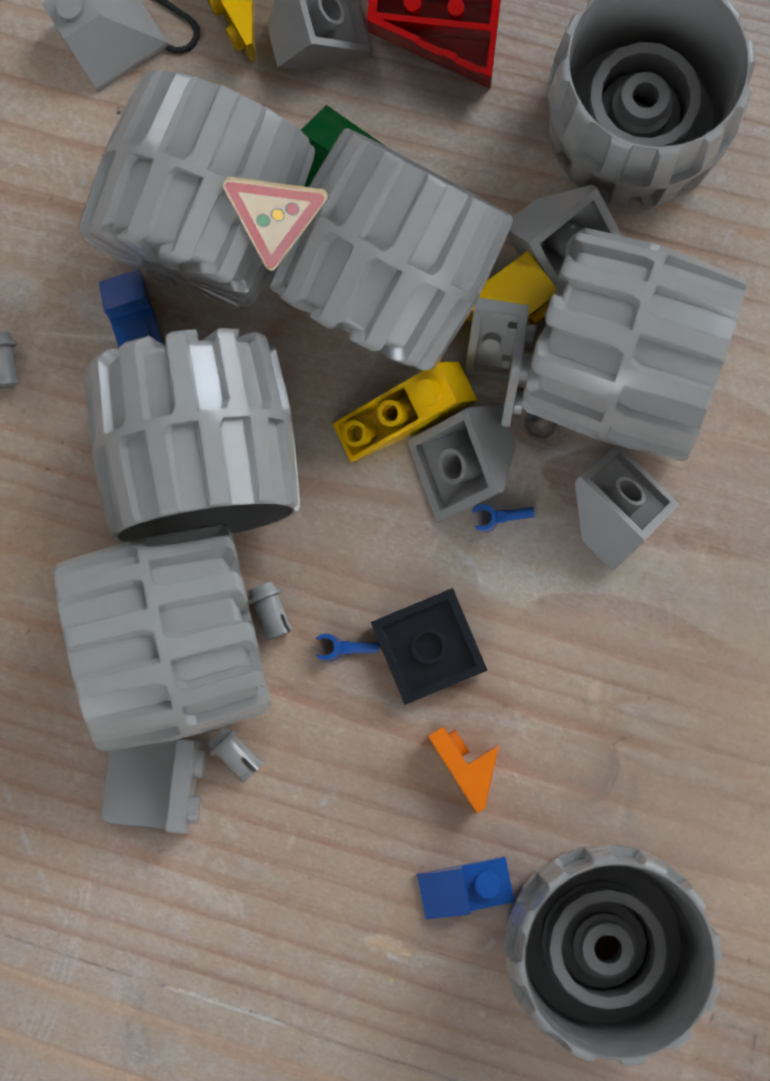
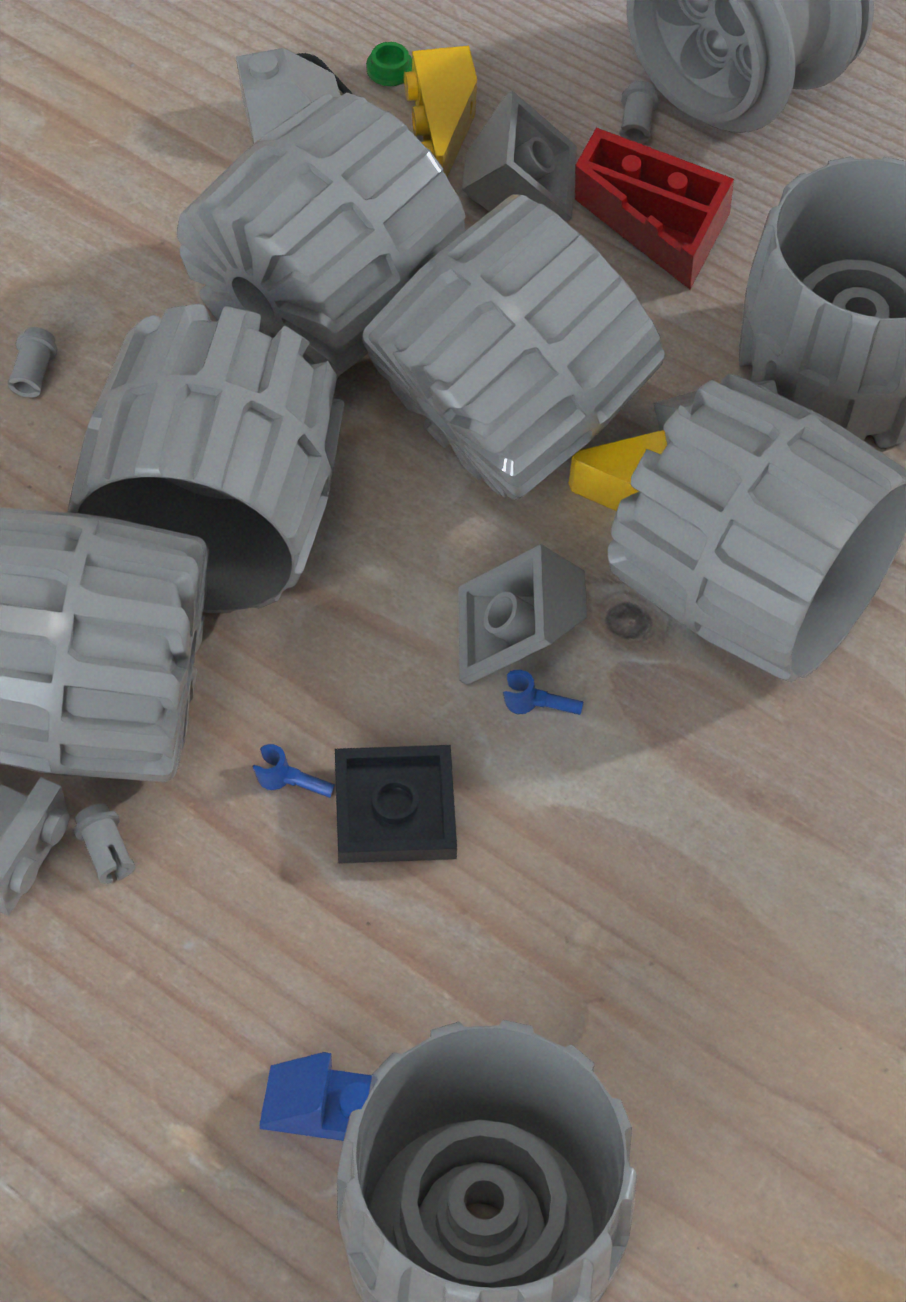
camera: 10 degrees right, 25 degrees down
(270, 610) = (219, 694): light grey pin -> none
(273, 214) = (395, 245): piece -> none
(405, 410) = (465, 544): yellow slope -> none
(472, 777) = (389, 959): orange slope -> none
(497, 348) = (592, 506): light grey bracket -> none
(619, 506) = (687, 727): light grey slope -> none

